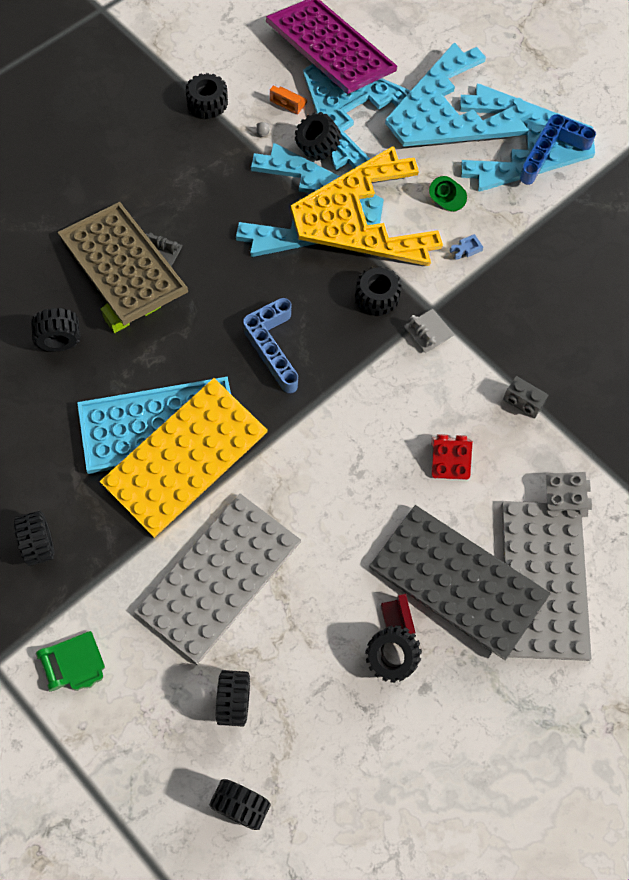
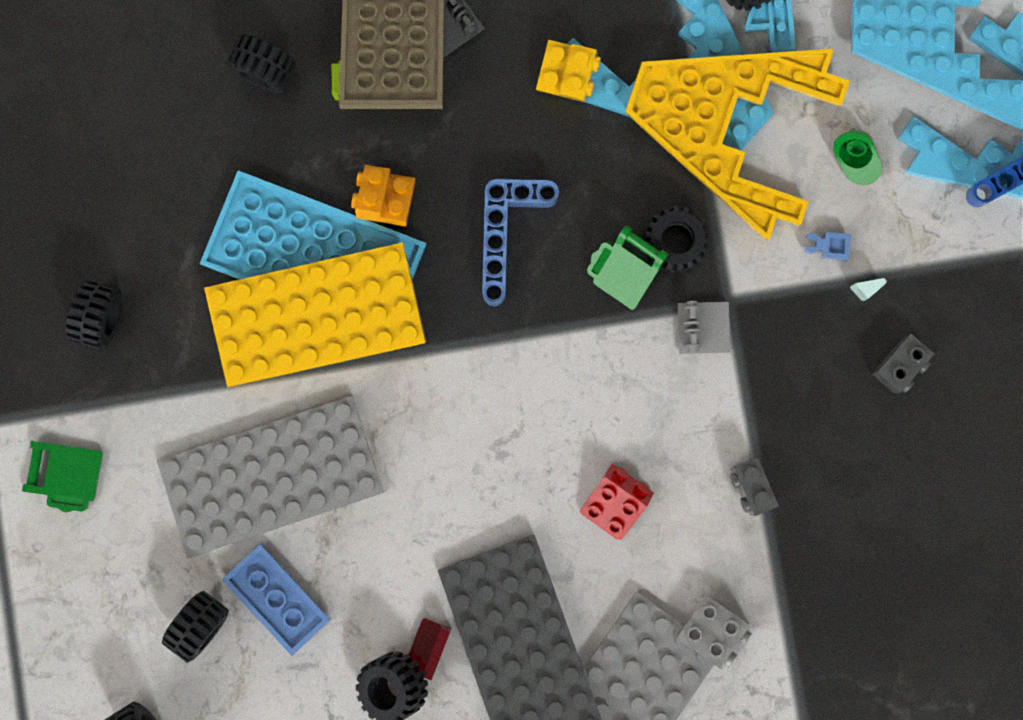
camera: 40 degrees right, 20 degrees up
(182, 365) = (383, 196): none -> light orange plate
(249, 237) = (568, 70): none -> yellow plate
(275, 651) = (276, 599): none -> medium blue plate
(359, 325) = (624, 272): none -> piece
(504, 256) = (866, 289): none -> light aqua slope
(556, 283) = (903, 364): none -> dark grey brick

